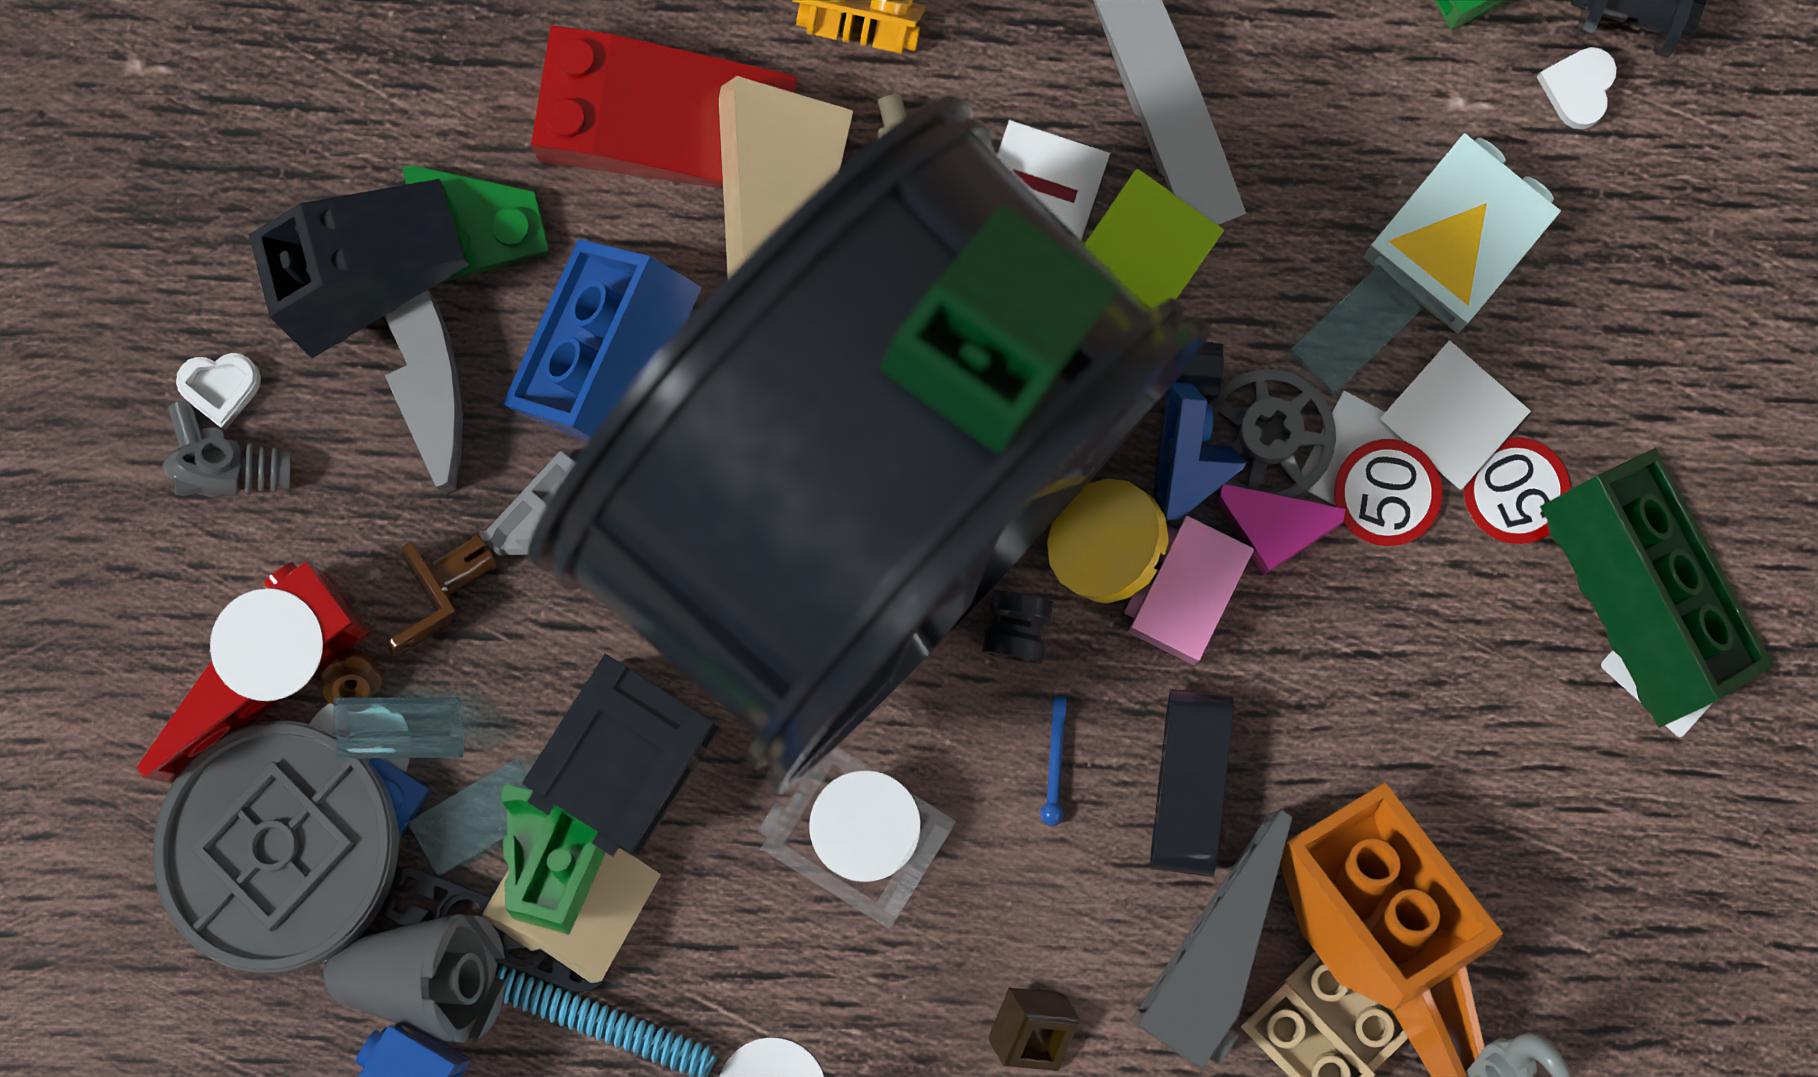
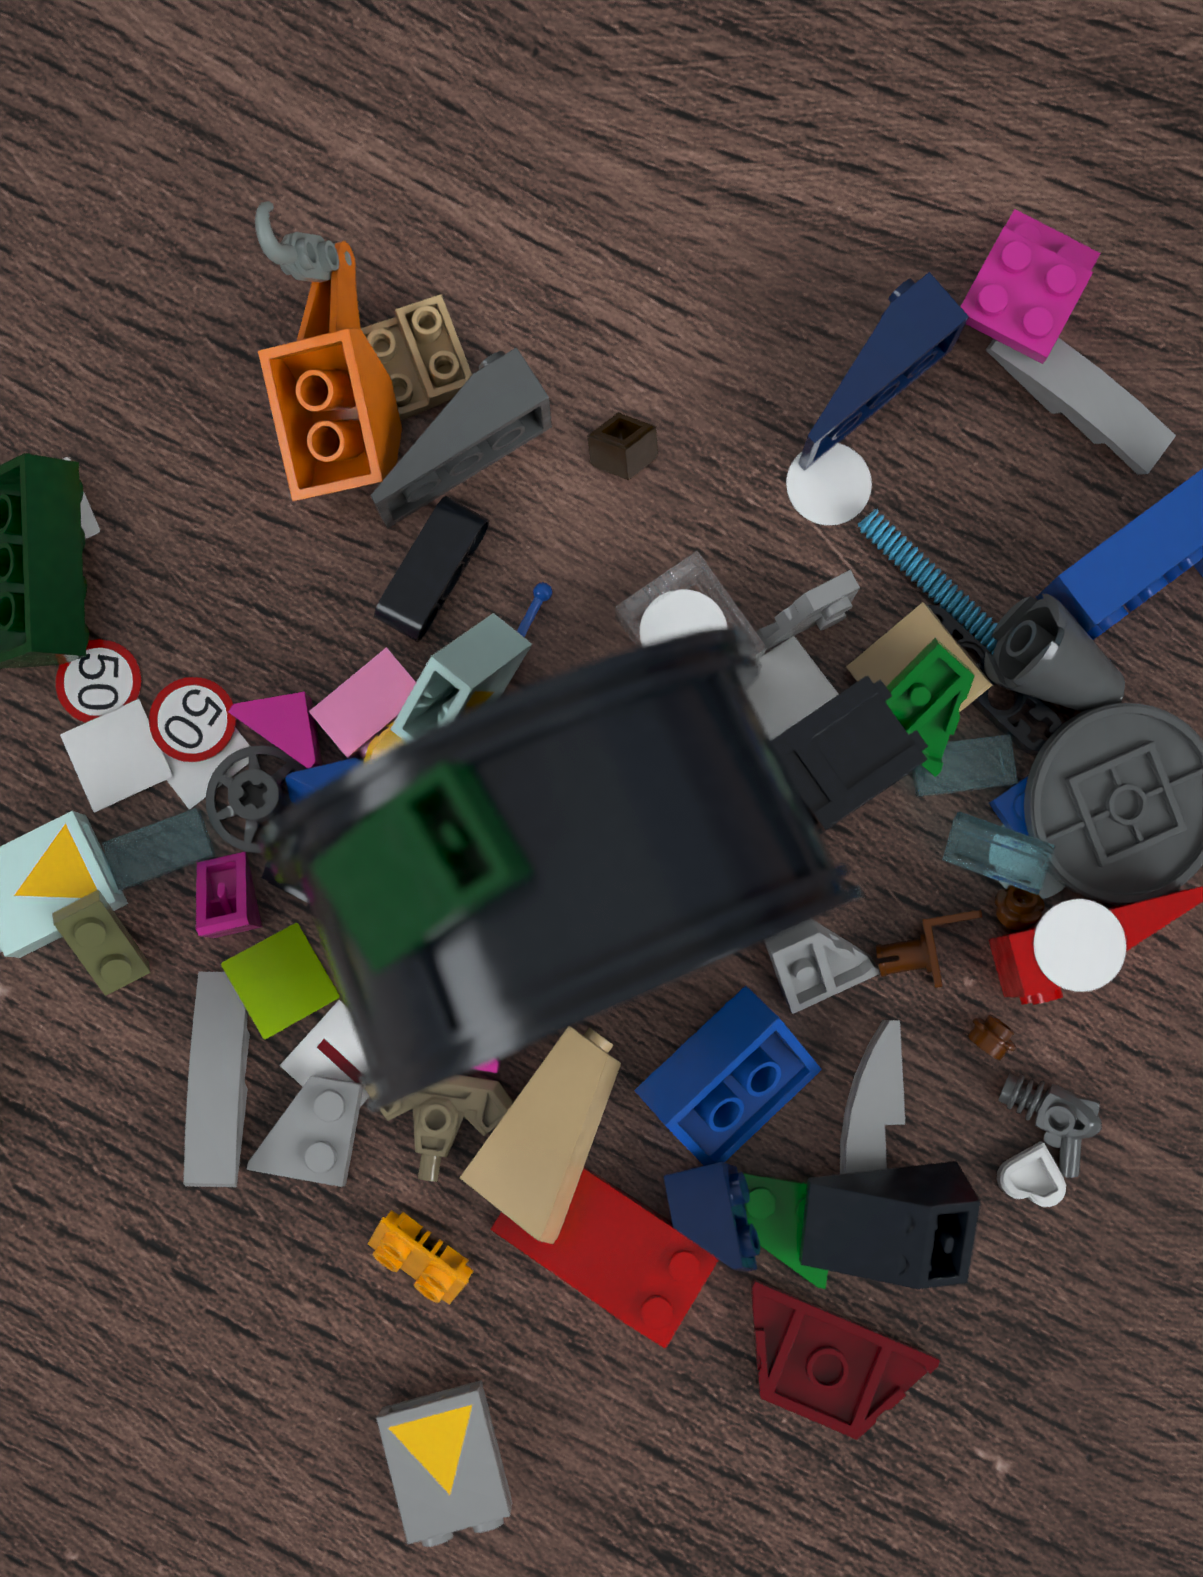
camera: 155 degrees left, 0 degrees up
(324, 519) = (992, 1036): none -> reddish brown plate
(366, 91) = (829, 1363): none -> dark red wing
(557, 188) = (711, 1212): none -> dark blue slope
(713, 928) = (820, 606): none -> light grey wing
(718, 815) = (788, 687): none -> white sticker
(1036, 93) = (313, 1134): none -> light grey wing
(1090, 645) = (463, 676): none -> light aqua brick
(1253, 306) = (225, 897): none -> dark pink slope
(1366, 195) = (101, 942): none -> olive plate

